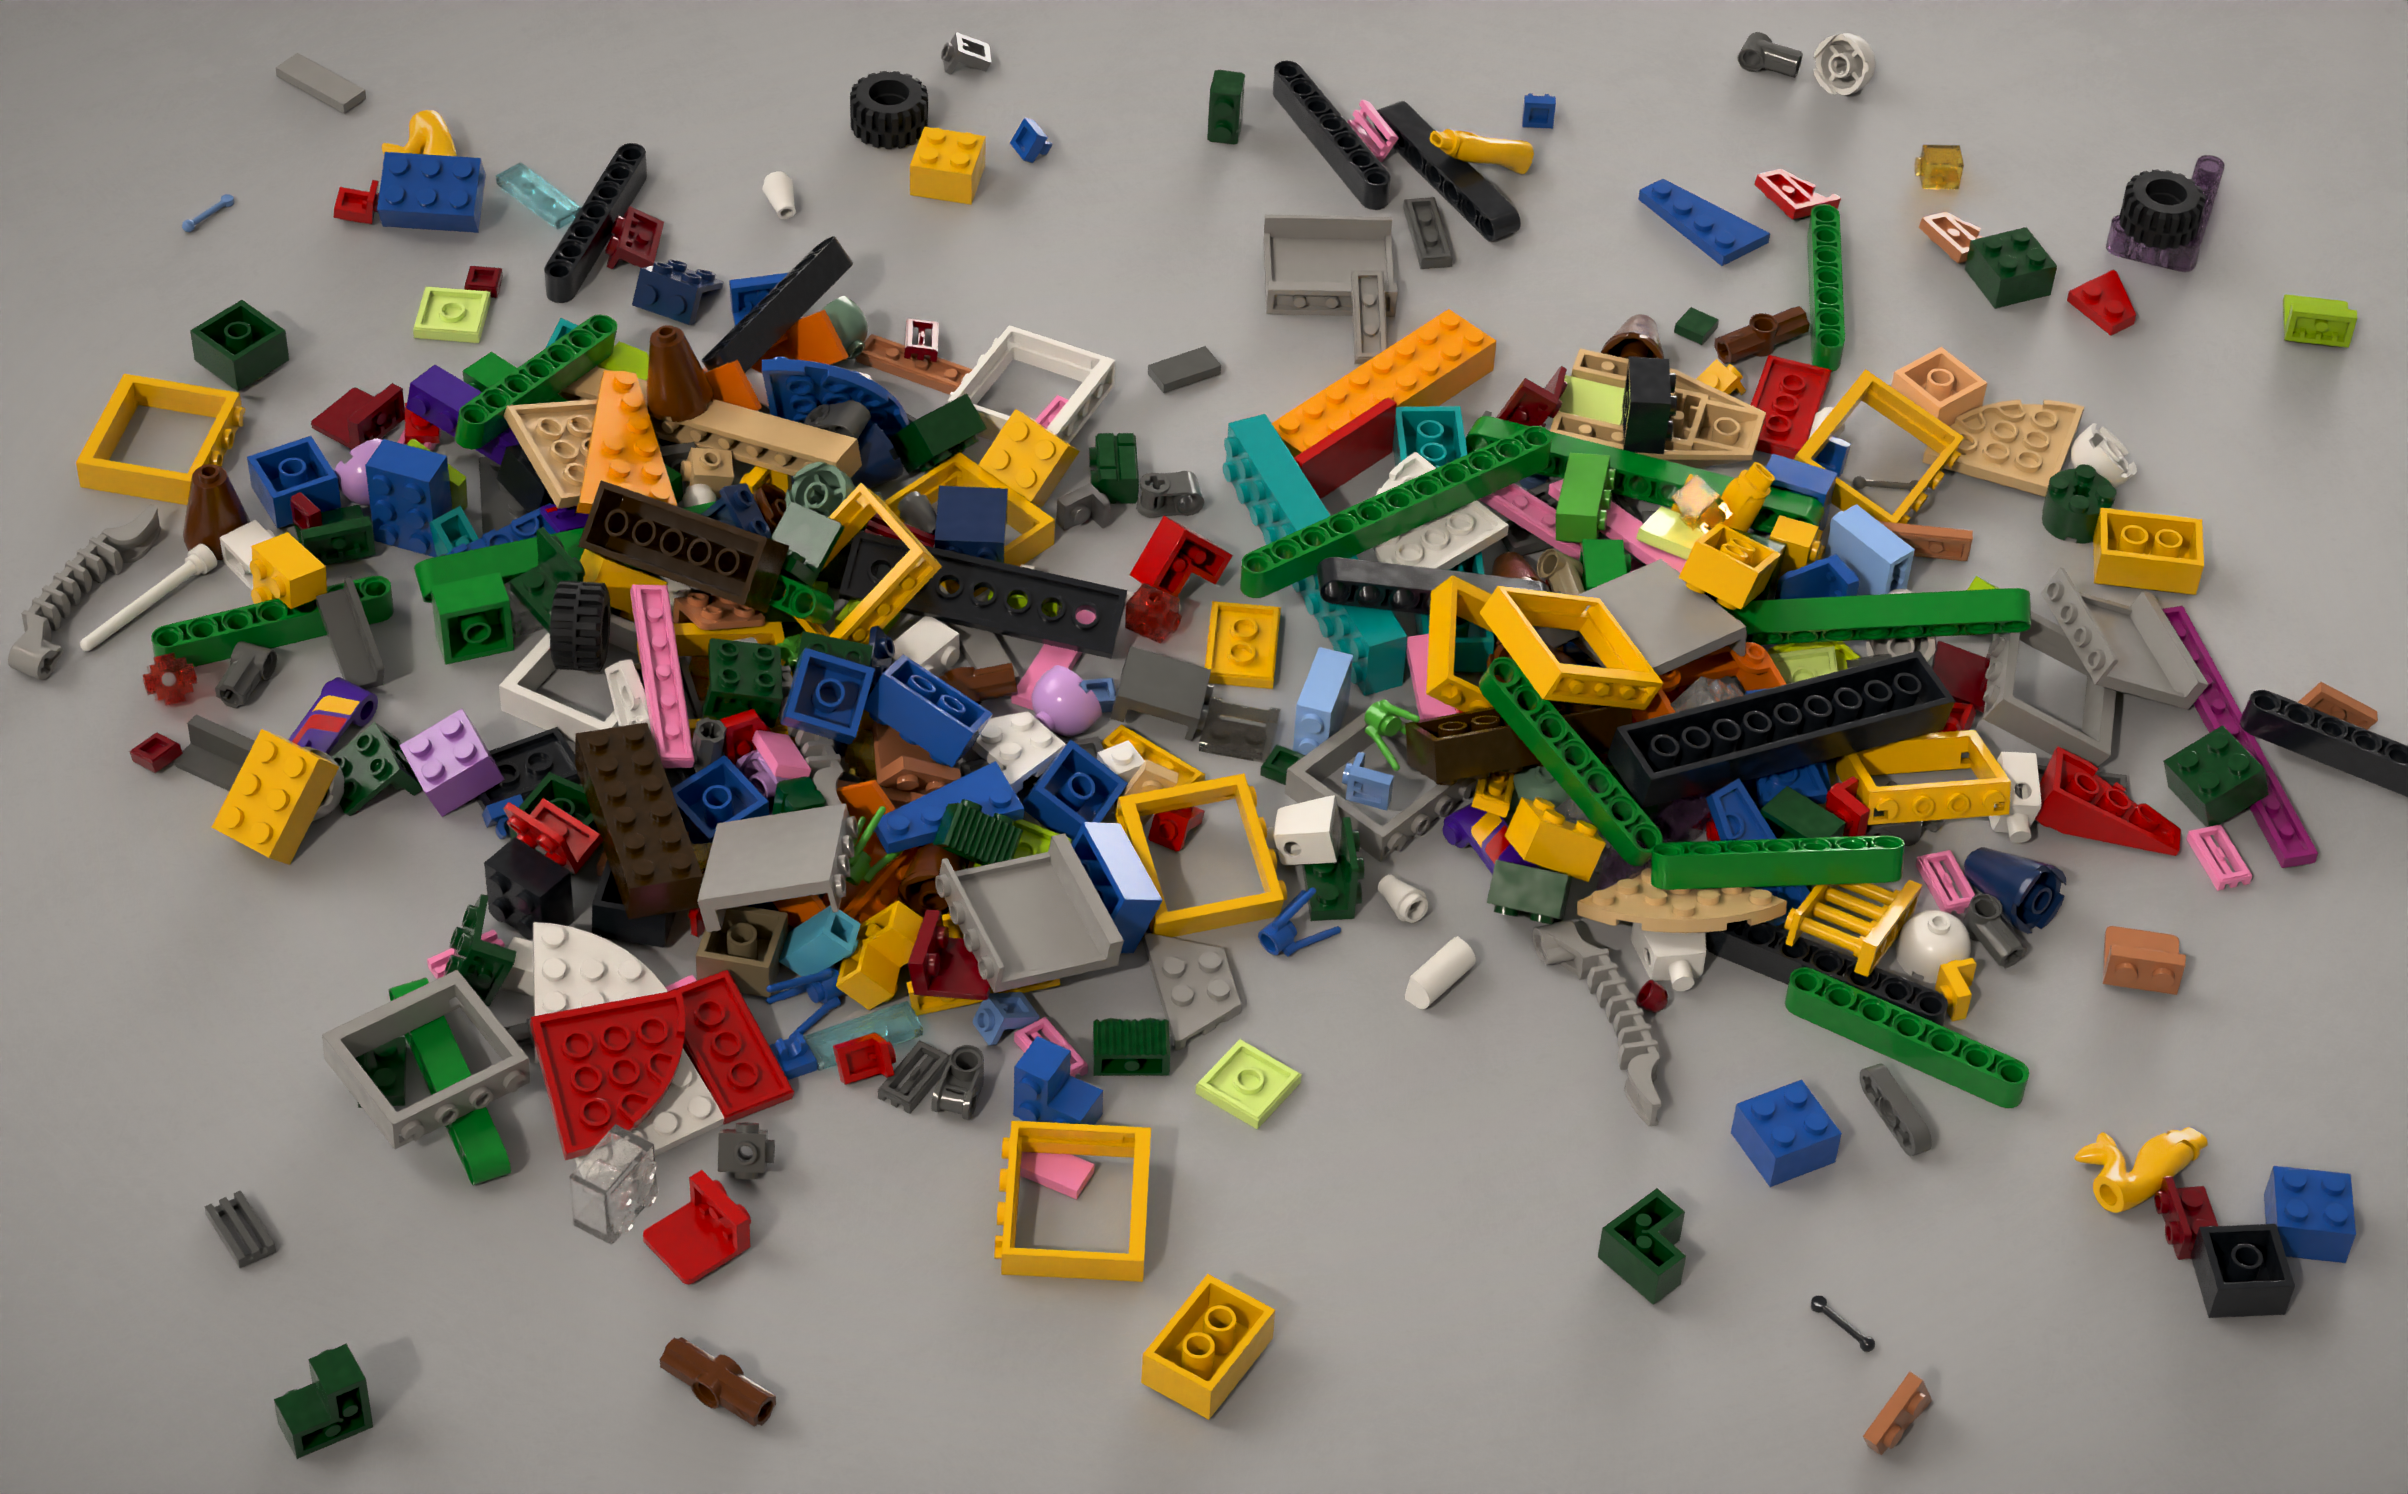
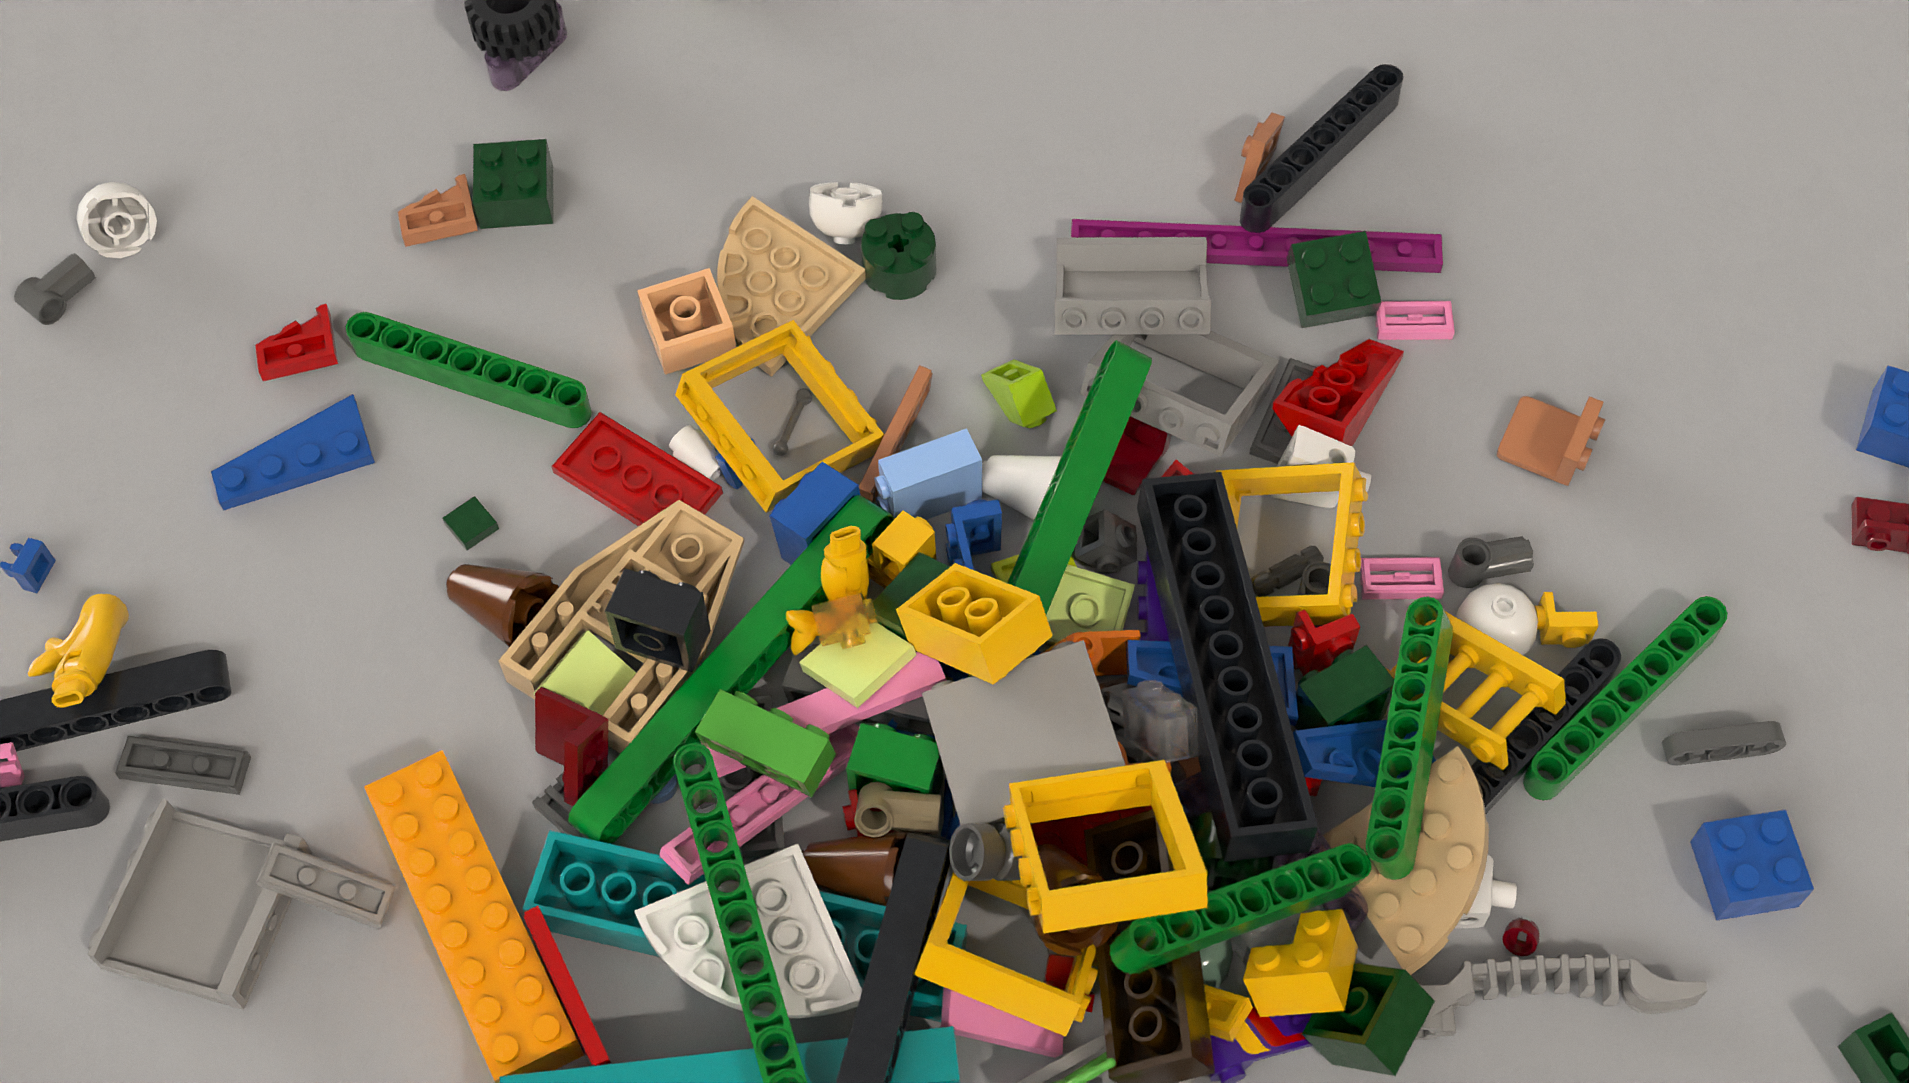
camera: 70 degrees left, 15 degrees up
(1722, 378) = (581, 534): yellow bracket -> none
(1761, 334) = (523, 478): reddish brown piece -> none
(1939, 166) = (322, 190): clear yellow brick -> none
(2023, 886) = (1438, 516): dark blue cone -> none
(2104, 302) = (590, 121): red wing -> none
(2148, 551) = (991, 218): yellow brick -> none
(2157, 1158) = (1829, 527): yellow piece -> none

